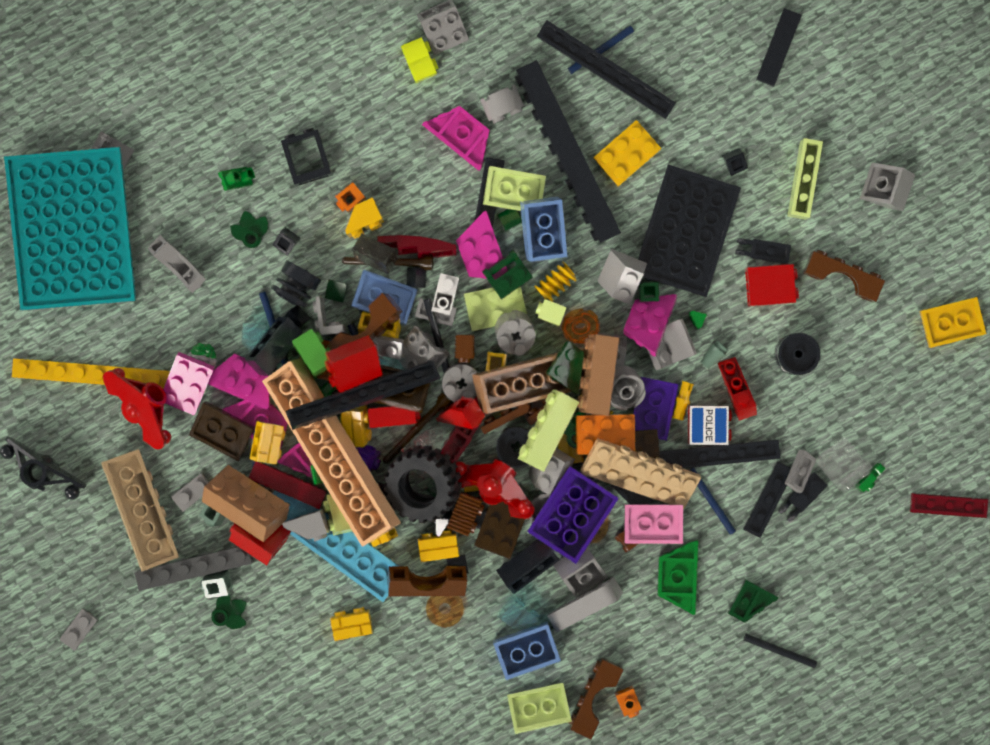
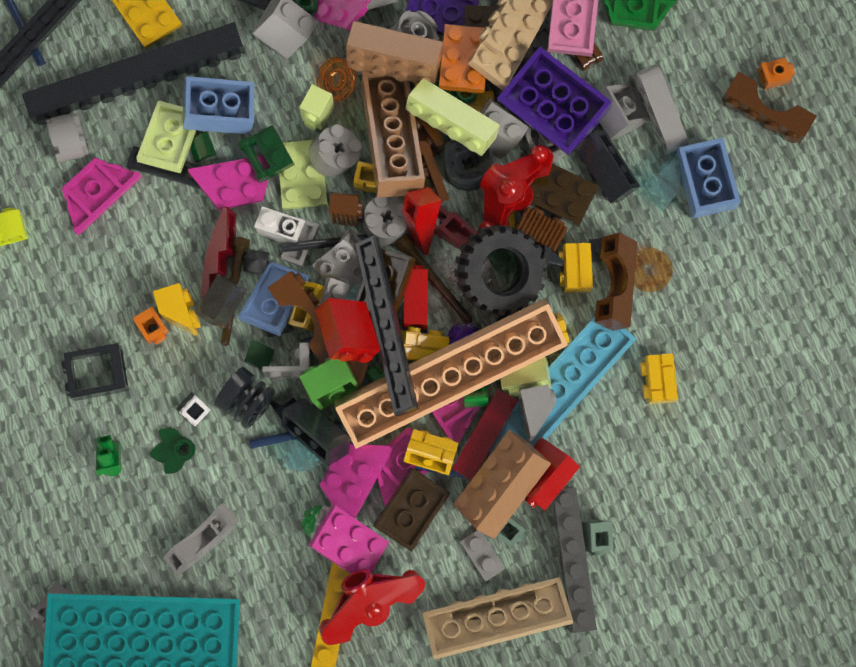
camera: 85 degrees left, 10 degrees down
(232, 612) = (630, 522): dark green plate -> none
(539, 708) = (776, 172): yellowish green plate -> none
(556, 282) = (281, 102): yellow piece -> none
(568, 367) = (381, 90): dark green wing -> none

